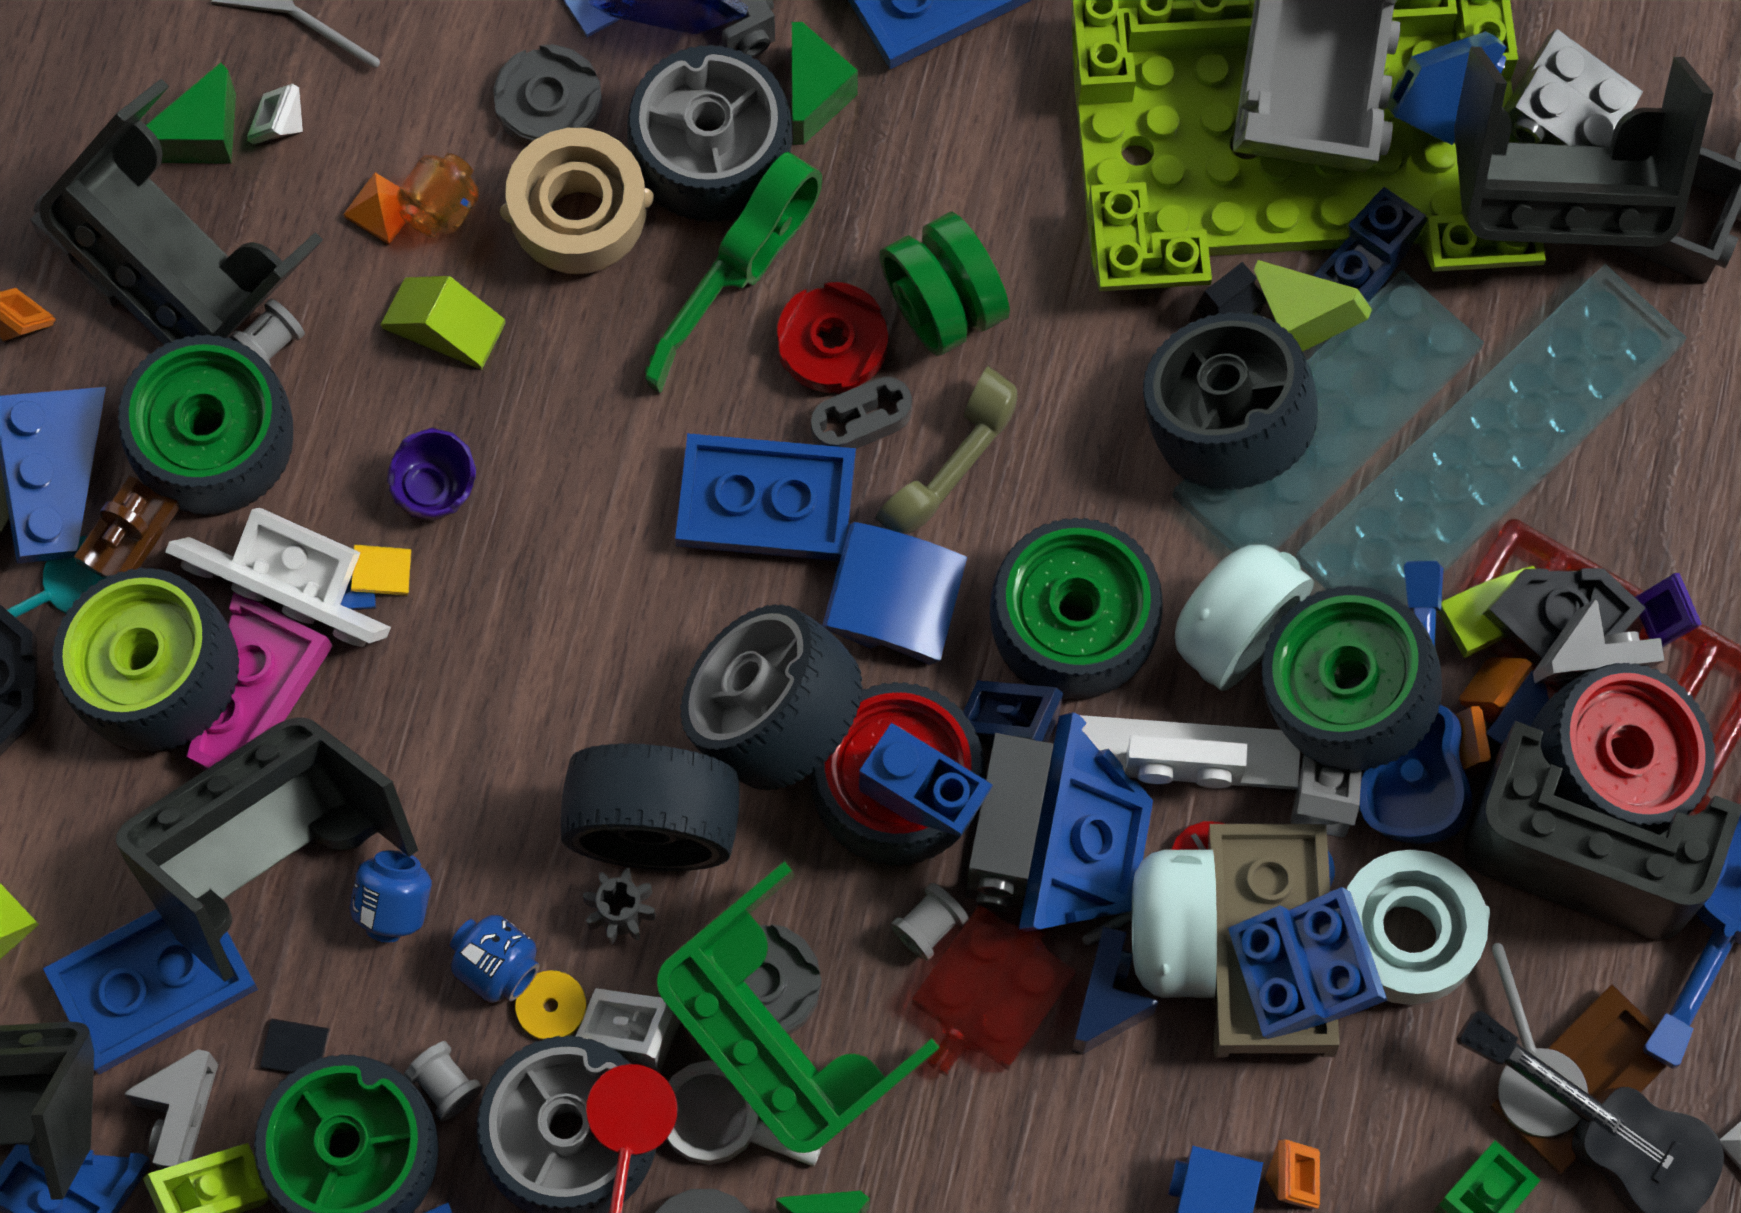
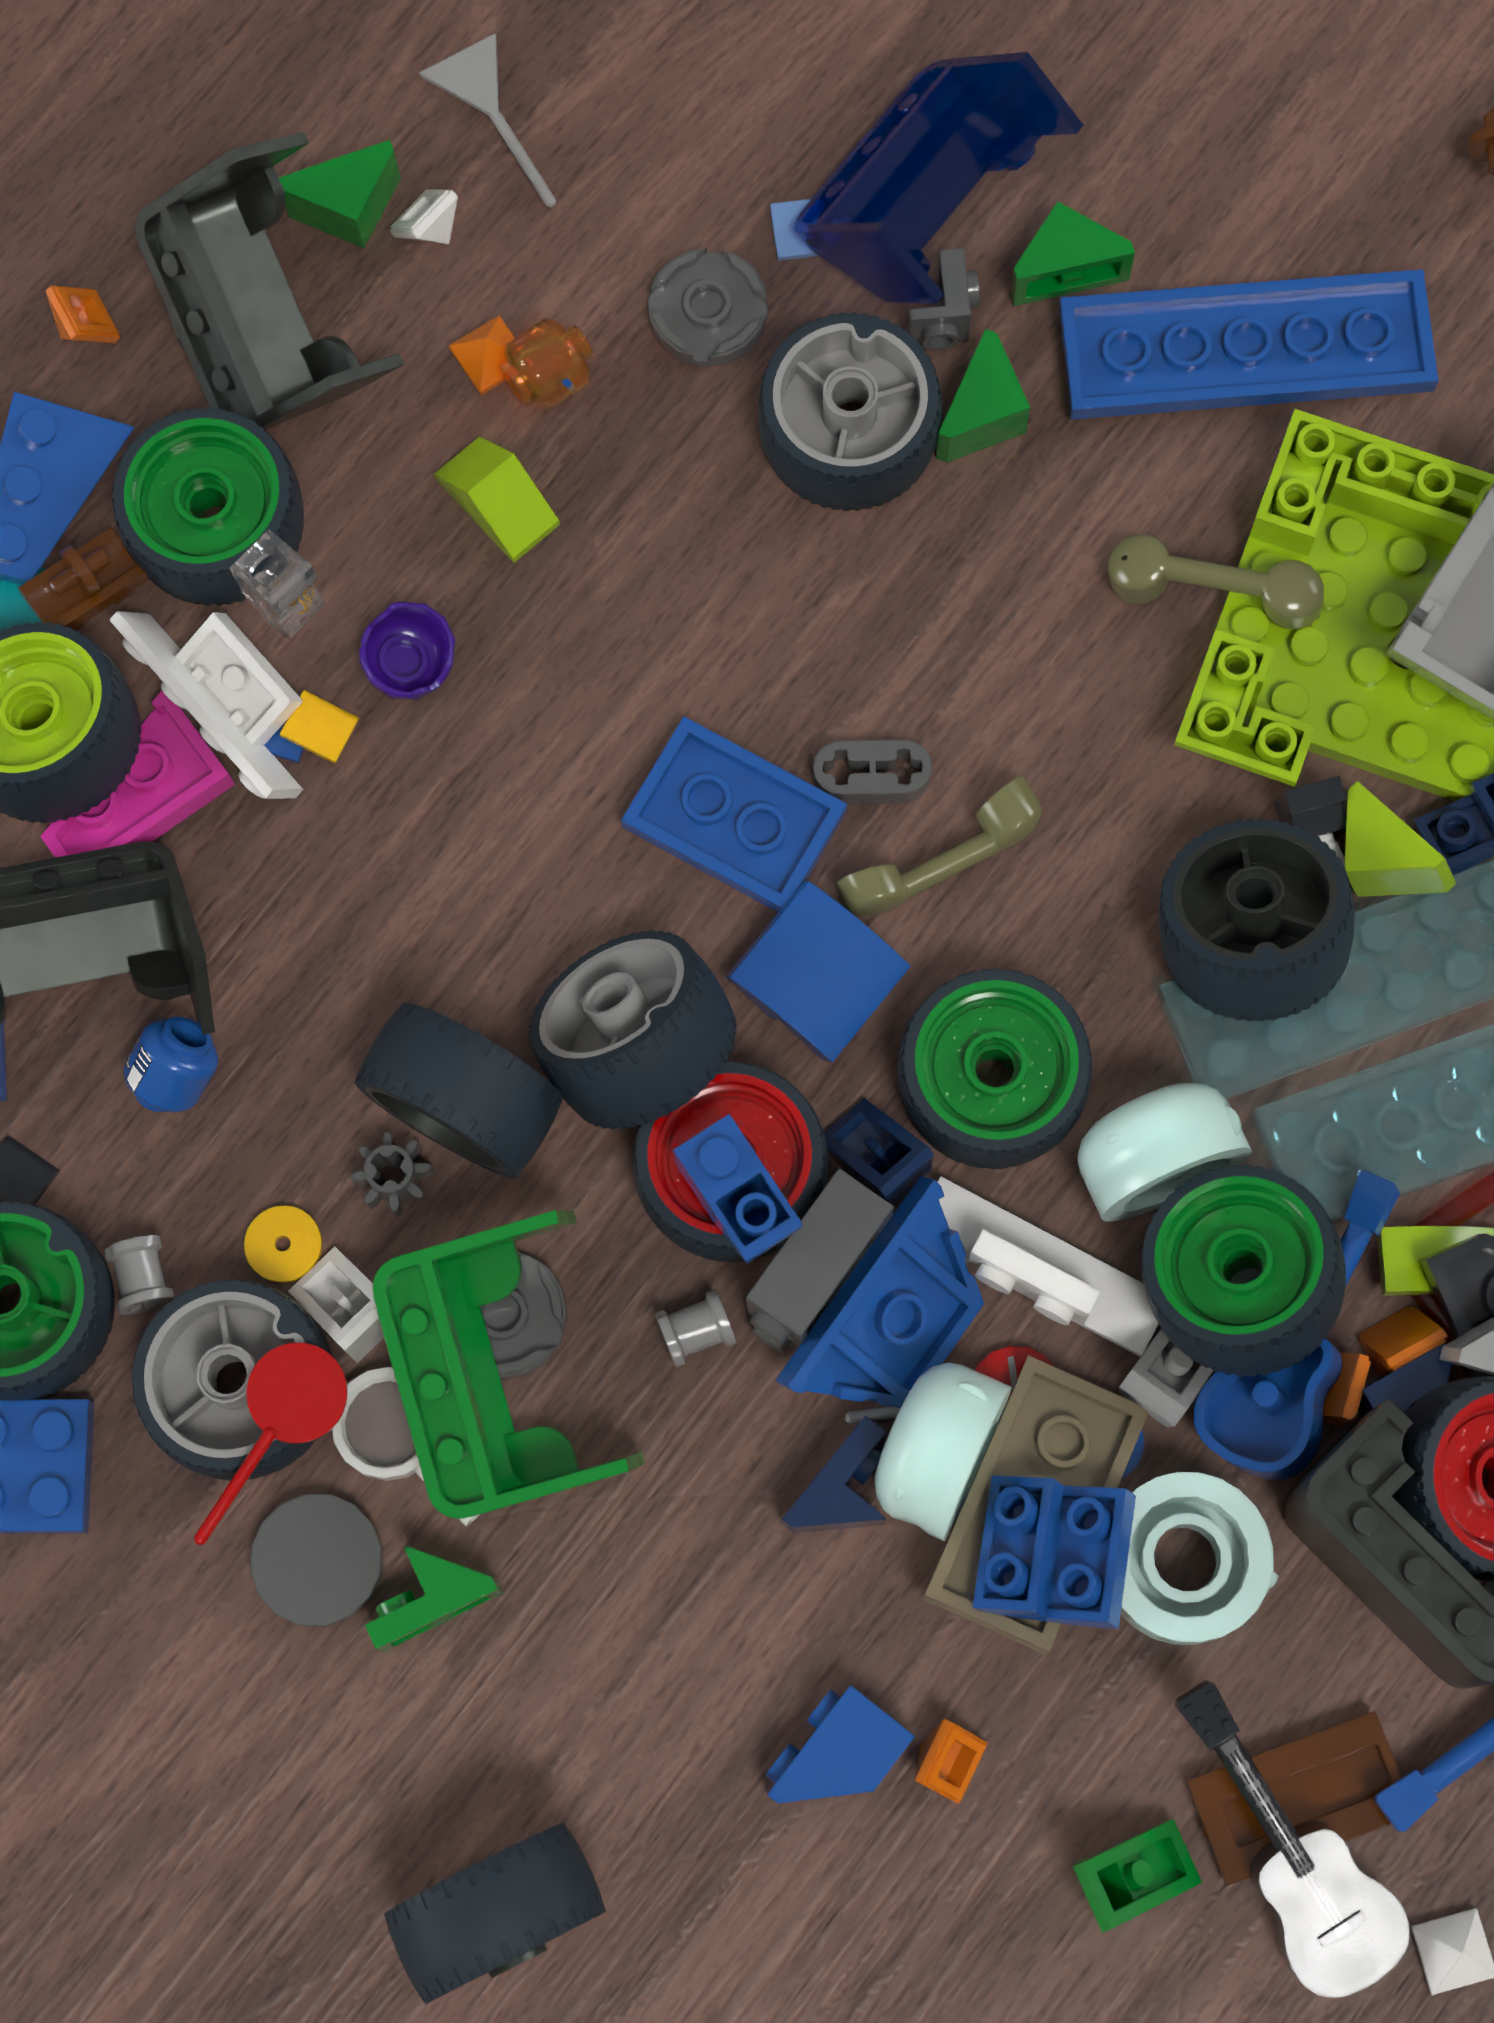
camera: 30 degrees right, 5 degrees up
(270, 331) = (314, 439): light grey bush -> none
(304, 465) = (283, 589): none -> clear leg
(494, 958) = (243, 1173): blue head -> none
(571, 163) = (674, 385): tan piece -> none
(749, 247) = (862, 531): green piece -> none
(822, 310) = (882, 644): red plate -> none
(944, 283) = (1023, 669): green wheel -> none
(991, 990) = (727, 1427): clear red plate -> none
(1006, 161) = (1289, 589): none -> olive piece
(1521, 1100) = (1216, 1792): light grey piece -> none

